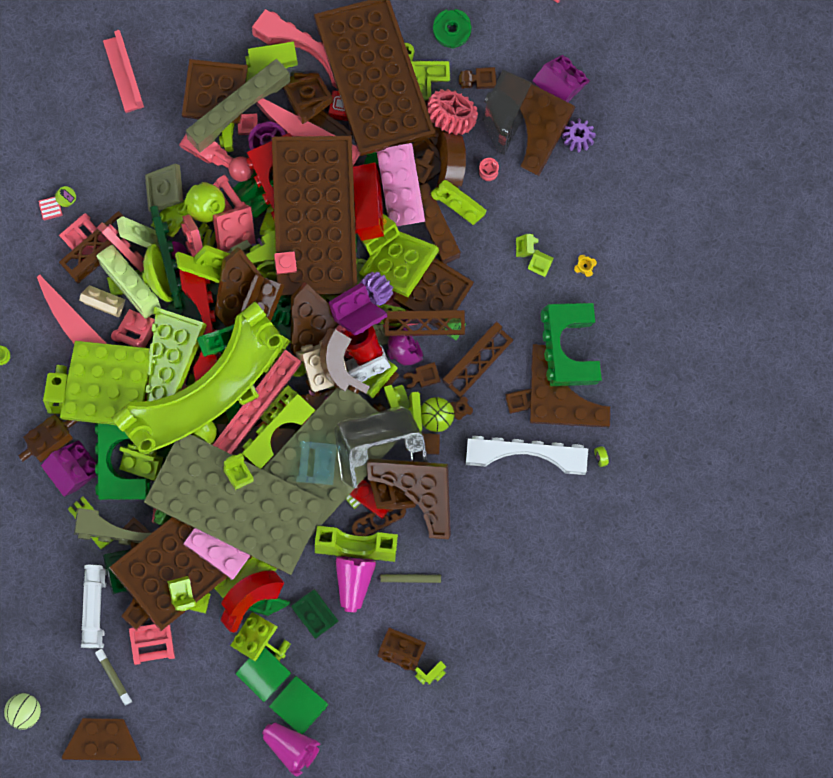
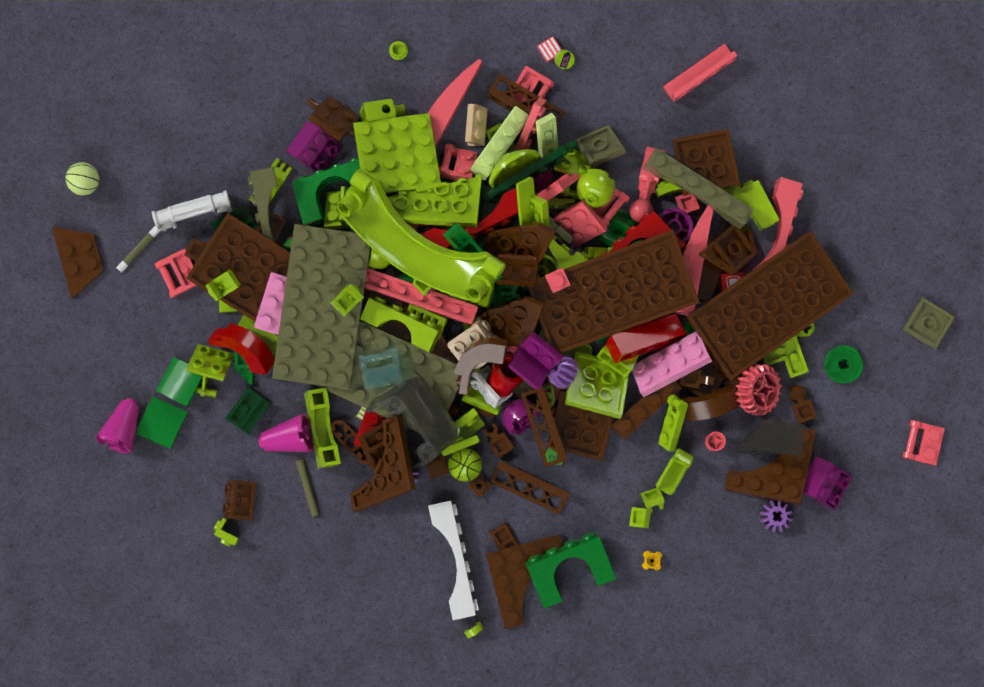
camera: 70 degrees right, 5 degrees up
(505, 216) = (674, 471): none -> lime animal

